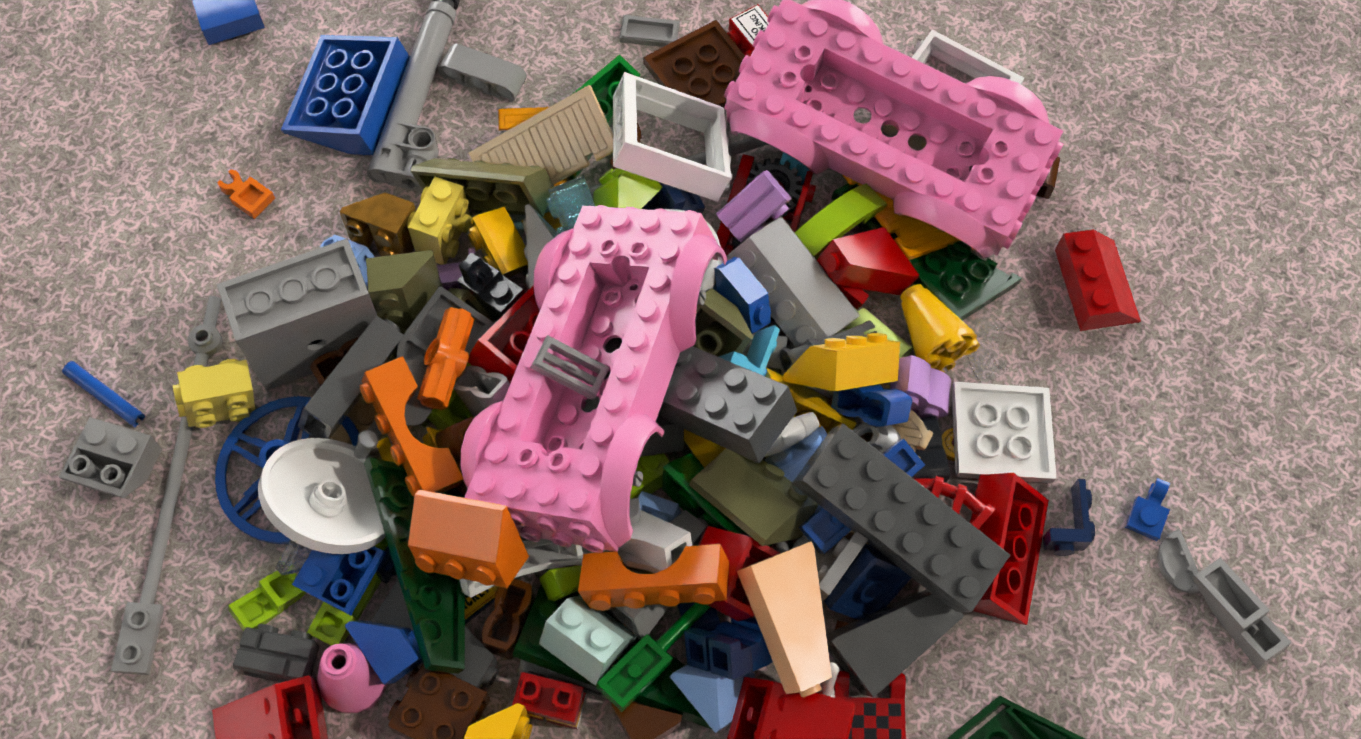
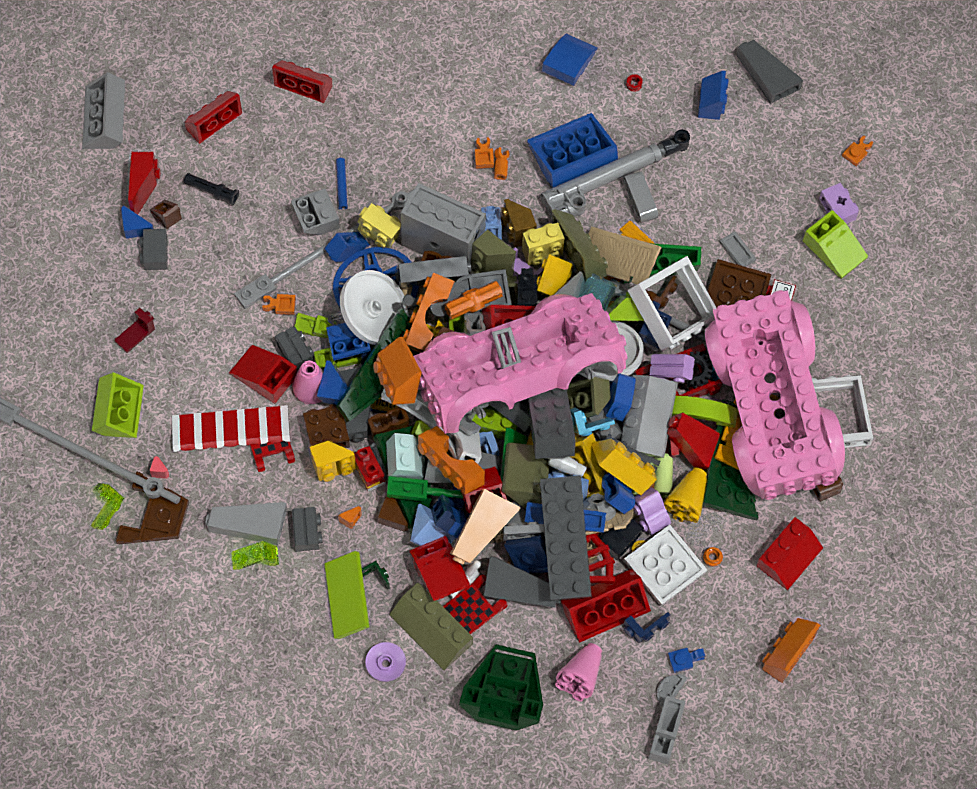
camera: 50 degrees right, 0 degrees up
(195, 615) = (282, 304): none -> orange plate
(196, 461) = (345, 245): none -> blue slope
(280, 185) = (501, 164): none -> orange bar
(1034, 360) = (712, 550): none -> orange plate
(1083, 657) = (580, 673): none -> bright pink cone
(1237, 375) = (790, 648): none -> orange slope

